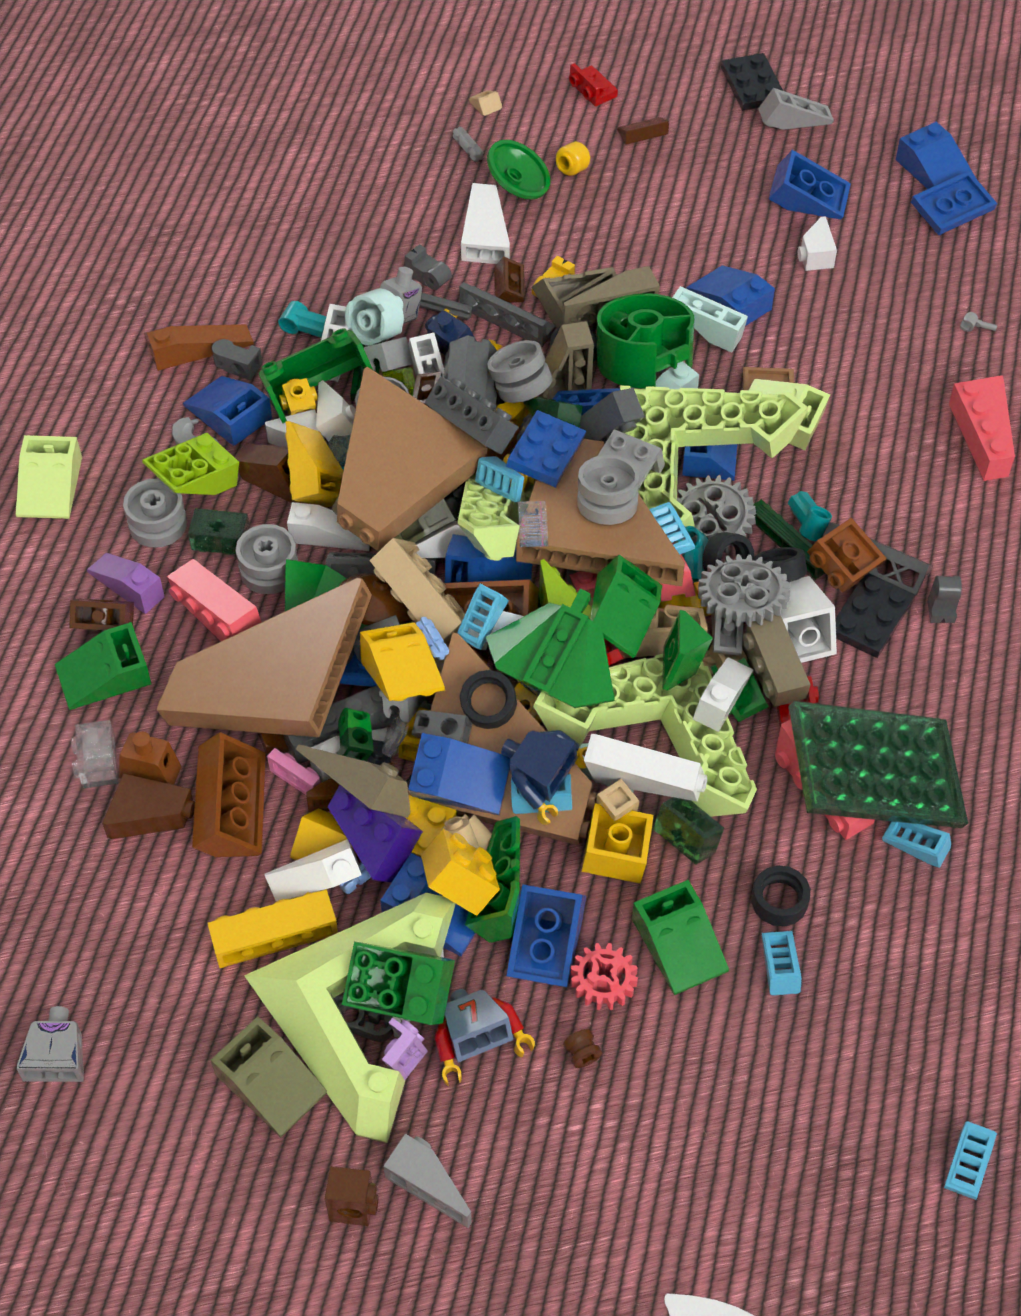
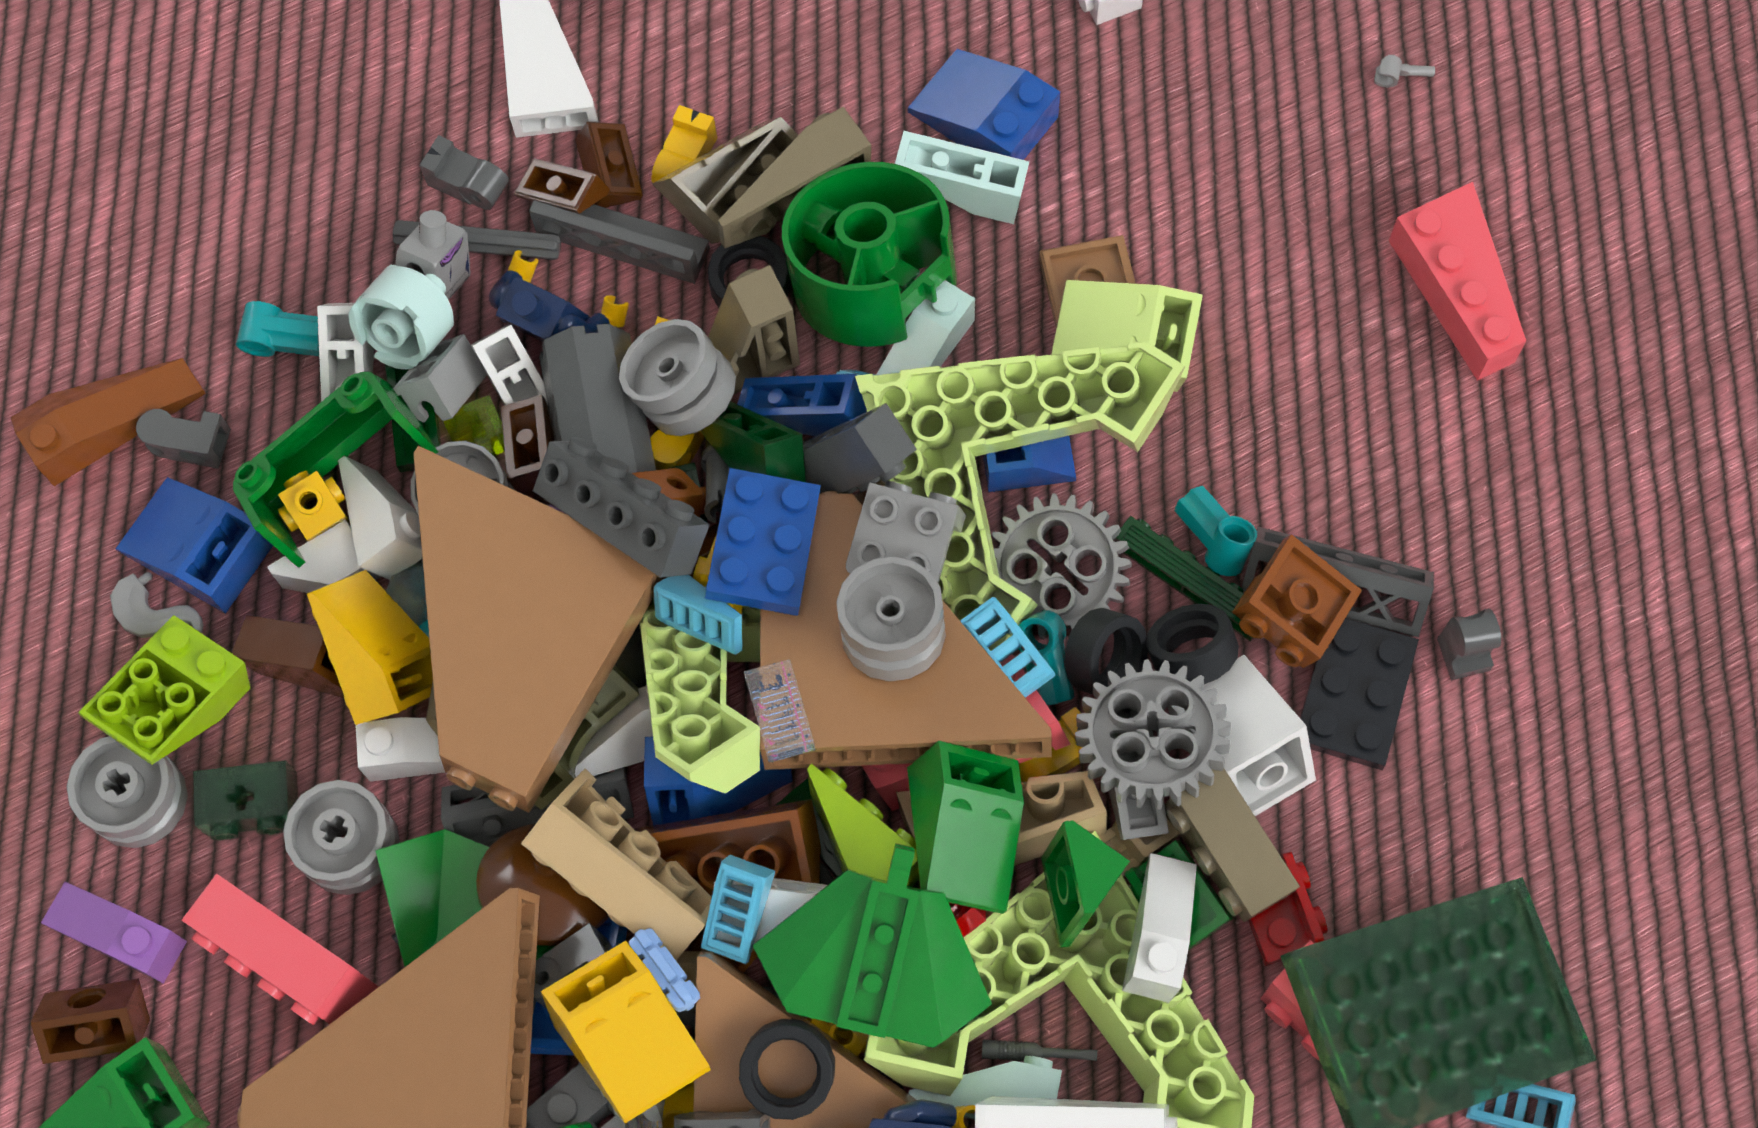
camera: 10 degrees left, 15 degrees up
(481, 280) = (561, 186): none -> reddish brown slope

